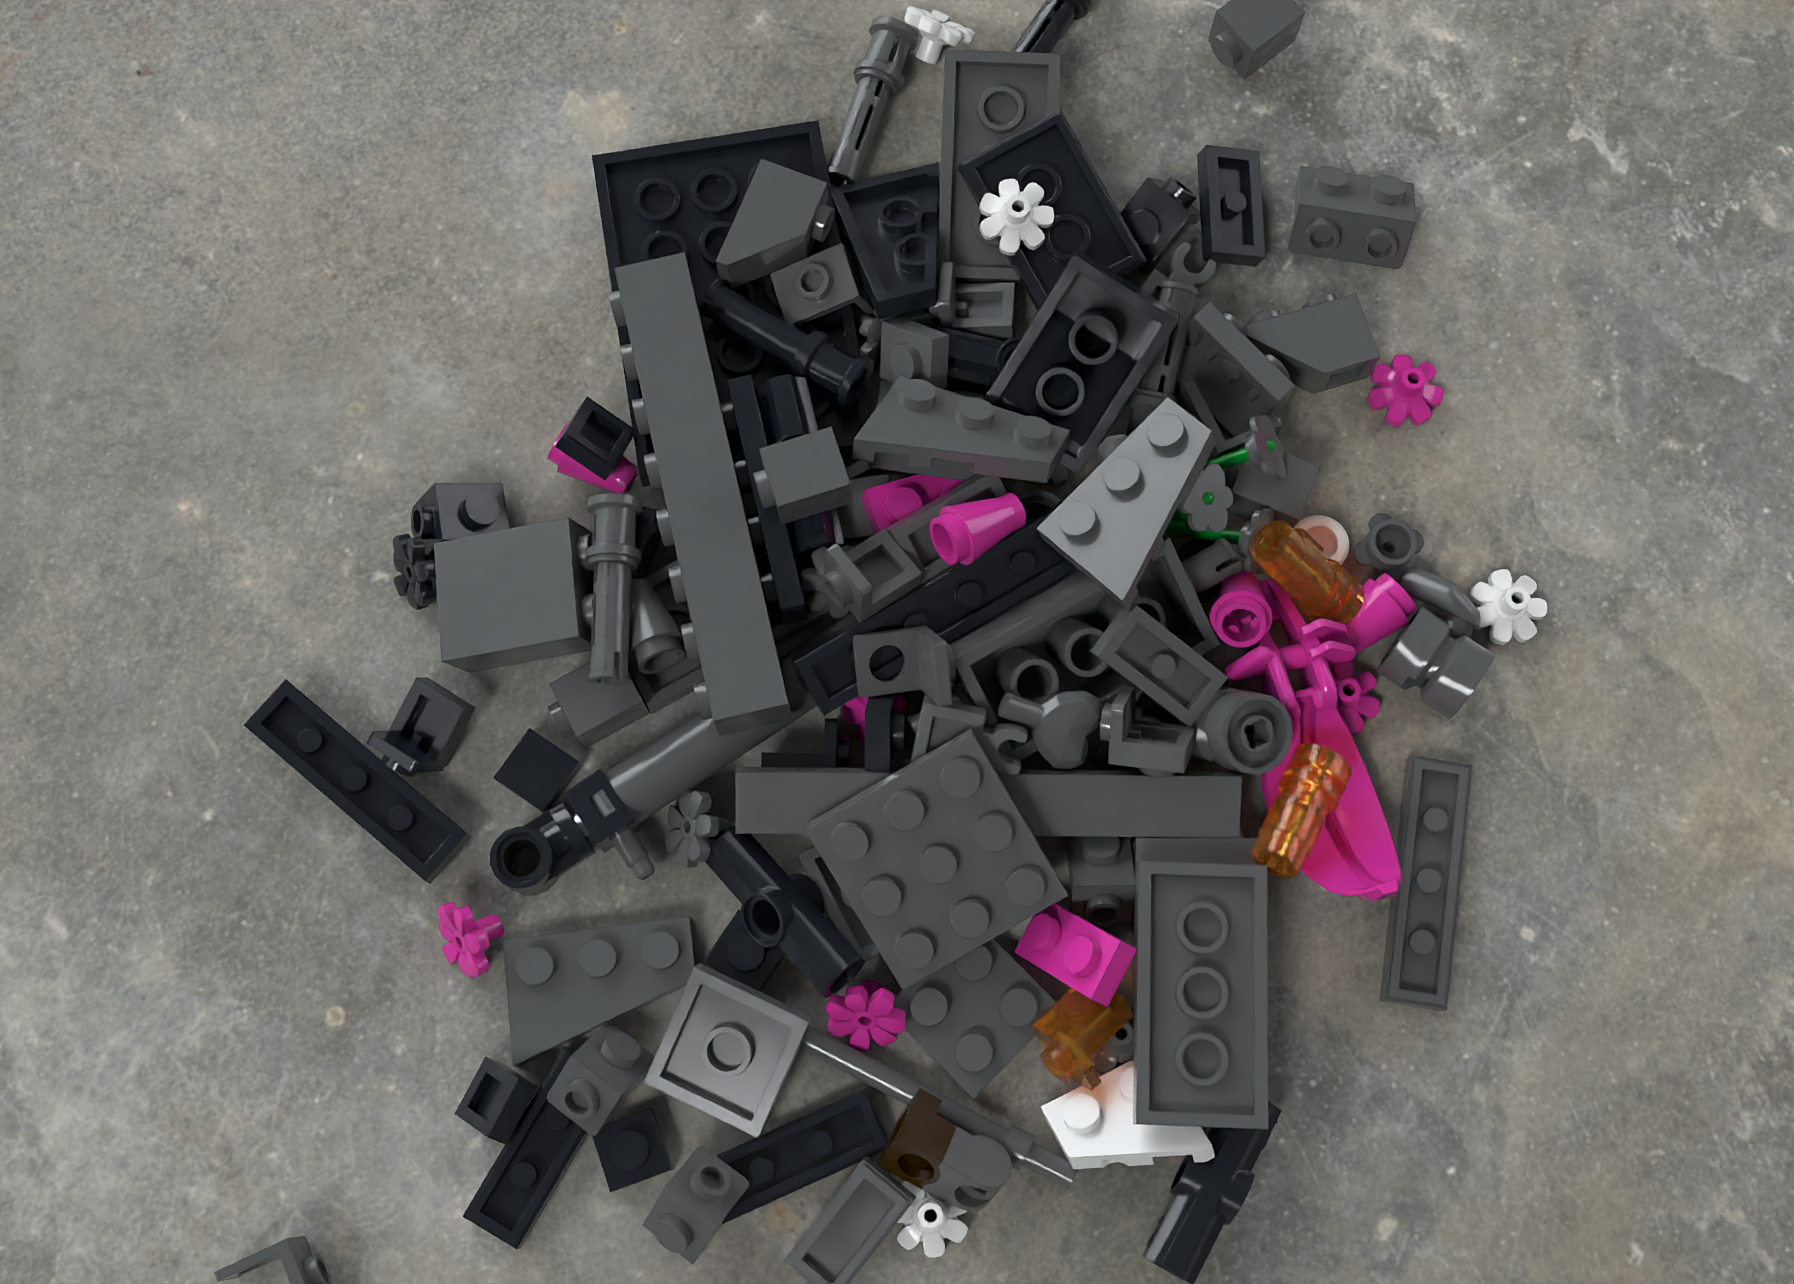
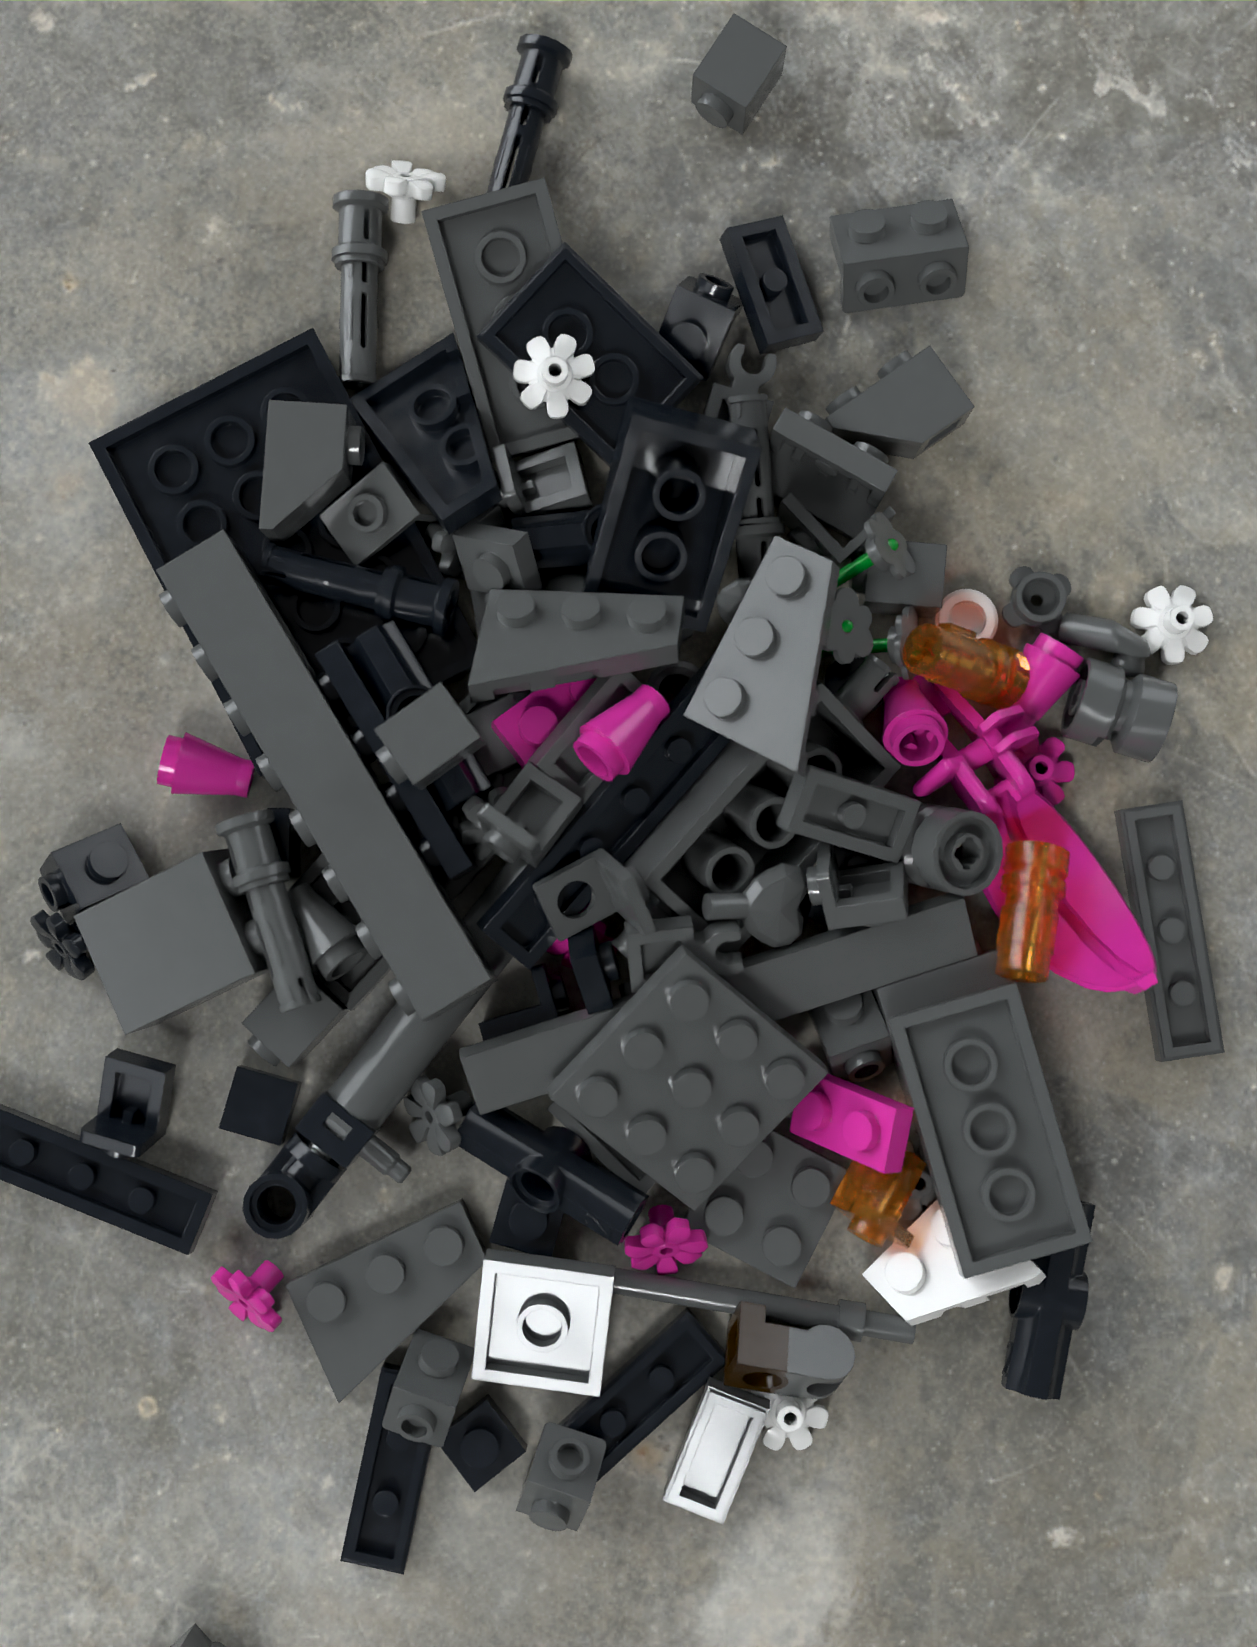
camera: 15 degrees left, 10 degrees up
(496, 1100) = (333, 1443): black plate -> none
(595, 438) = (199, 752): black tile -> none
(1404, 391) = (1006, 428): dark pink plant -> none

